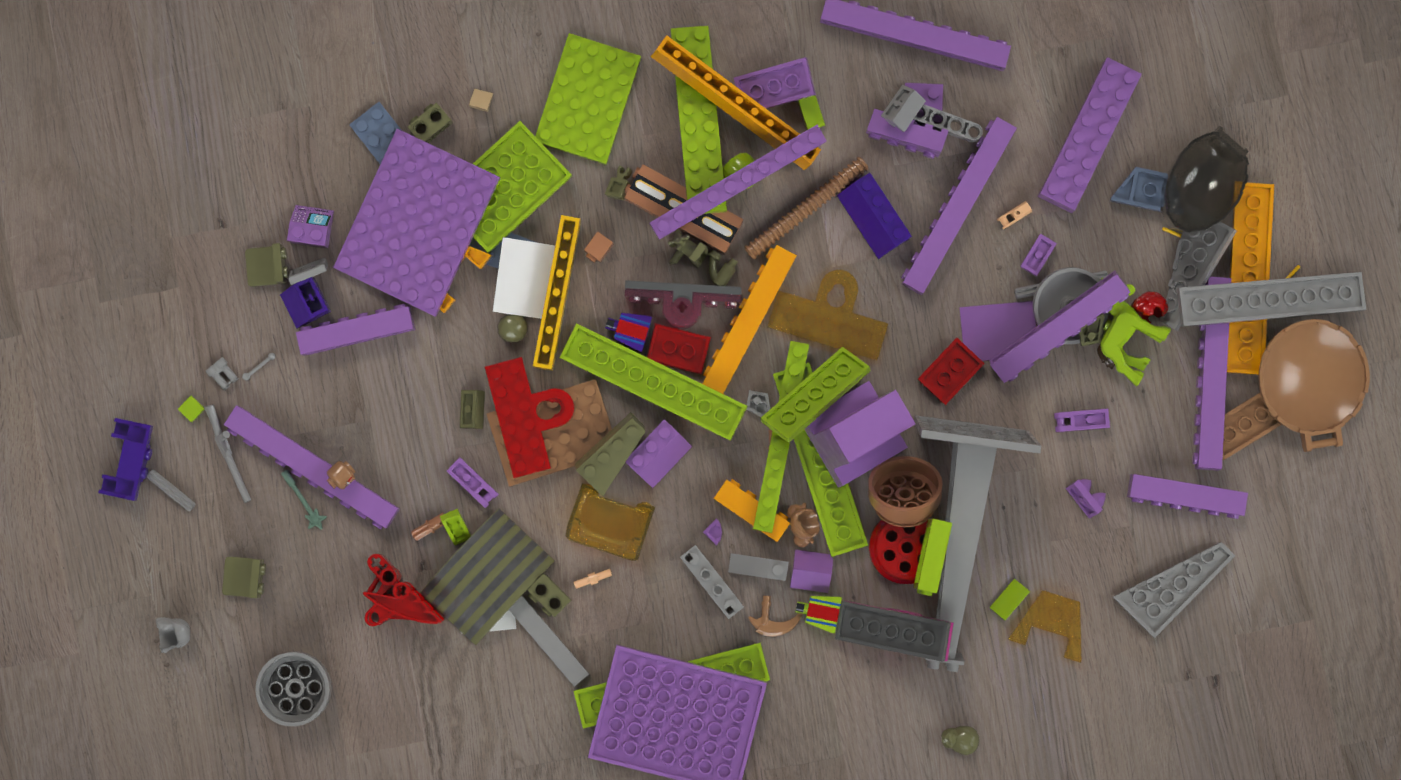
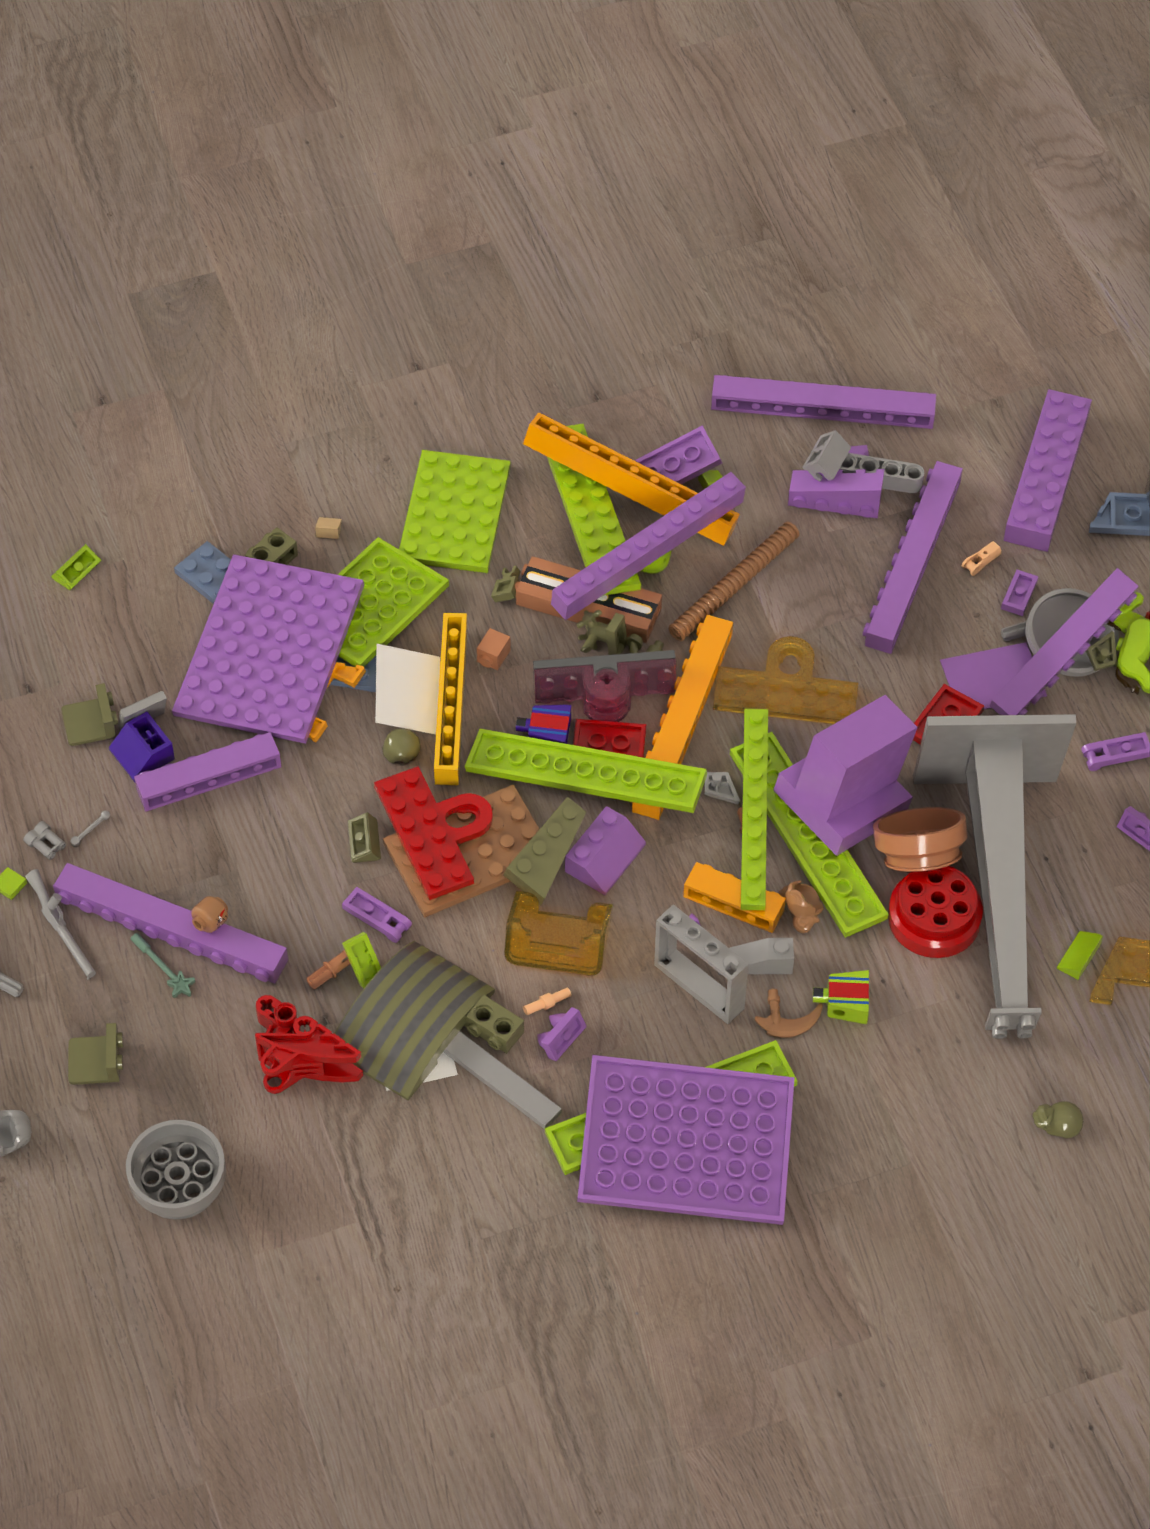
camera: 10 degrees left, 30 degrees down
(269, 110) = (76, 567): none -> lime slope
(310, 226) = (138, 676): medium lavender slope -> none
(604, 606) = (566, 1029): none -> medium lavender tile
(811, 571) = (823, 956): medium lavender slope -> none
(815, 394) = (782, 751): lime plate -> none
(874, 216) = (817, 577): dark purple slope -> none
(894, 630) = (944, 991): dark grey piece -> none
(932, 556) = (972, 876): lime window -> none

